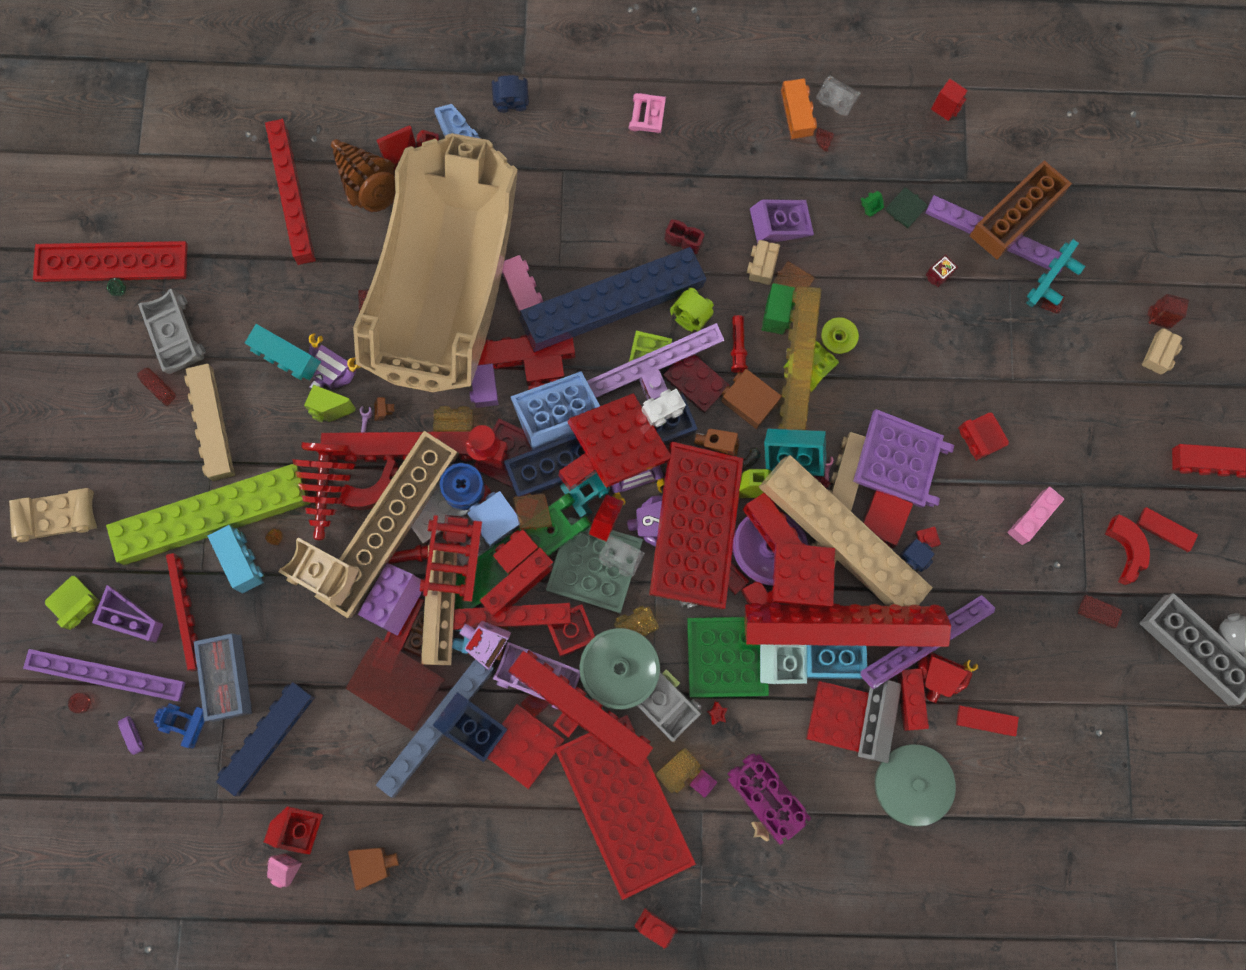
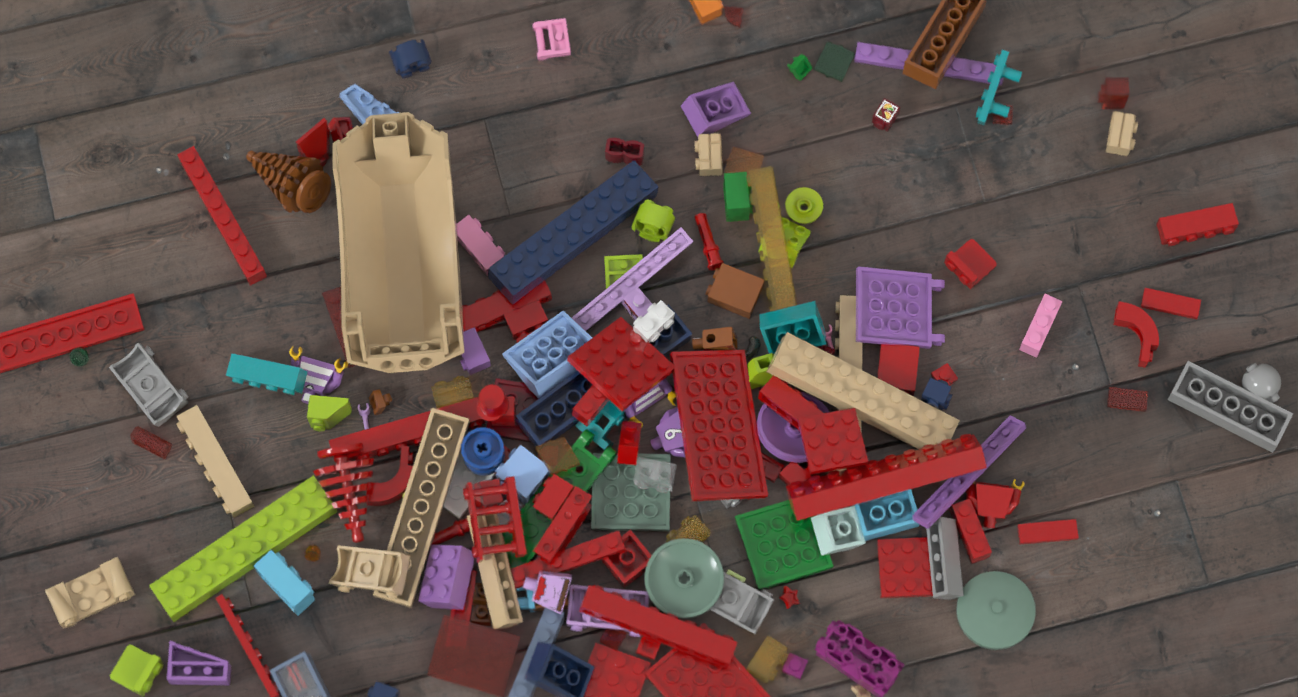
camera: 10 degrees left, 5 degrees down
(696, 382) = (677, 289): dark red plate -> none

